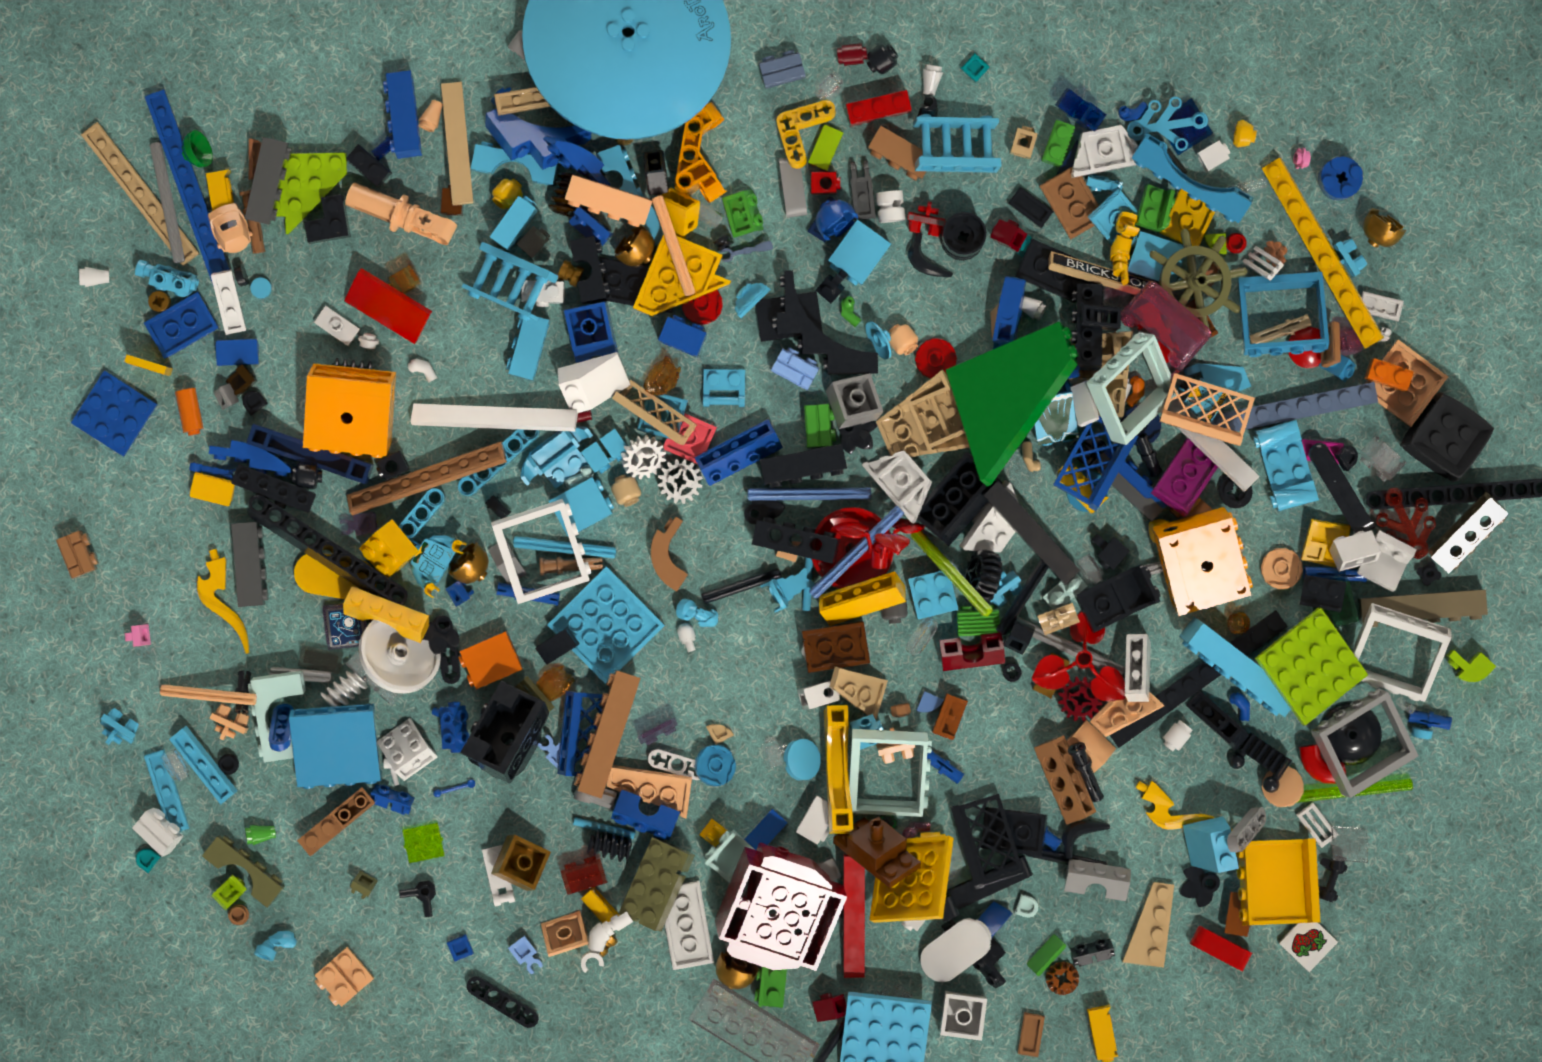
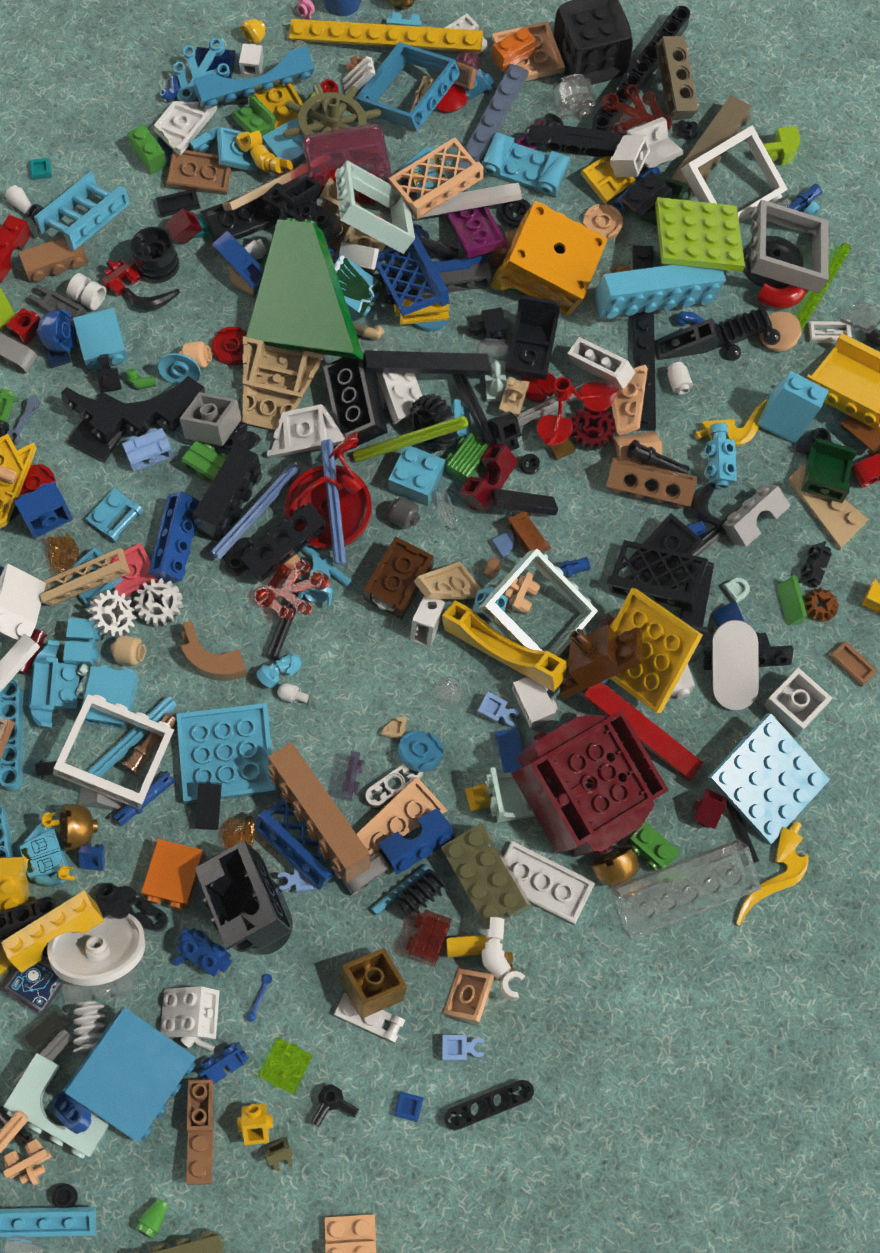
camera: 55 degrees left, 20 degrees down
(369, 855) = (255, 1124): none -> yellow brick
(749, 297) = (60, 442): medium azure tile -> none
(761, 574) = (267, 595): none -> clear red plant
(789, 795) = (494, 708): none -> light blue plate
(802, 759) = (472, 673): medium azure tile -> none
(862, 598) = (375, 523): yellow brick -> none
(972, 695) = (524, 501): none -> black tile
(1024, 151) = (125, 171): tan brick -> none
(1080, 111) = (144, 112): clear blue brick -> none
(1128, 818) = (721, 457): none -> medium azure brick
(1179, 910) = (828, 470): none -> dark green panel
(1246, 829) = (799, 368): light grey beam -> none

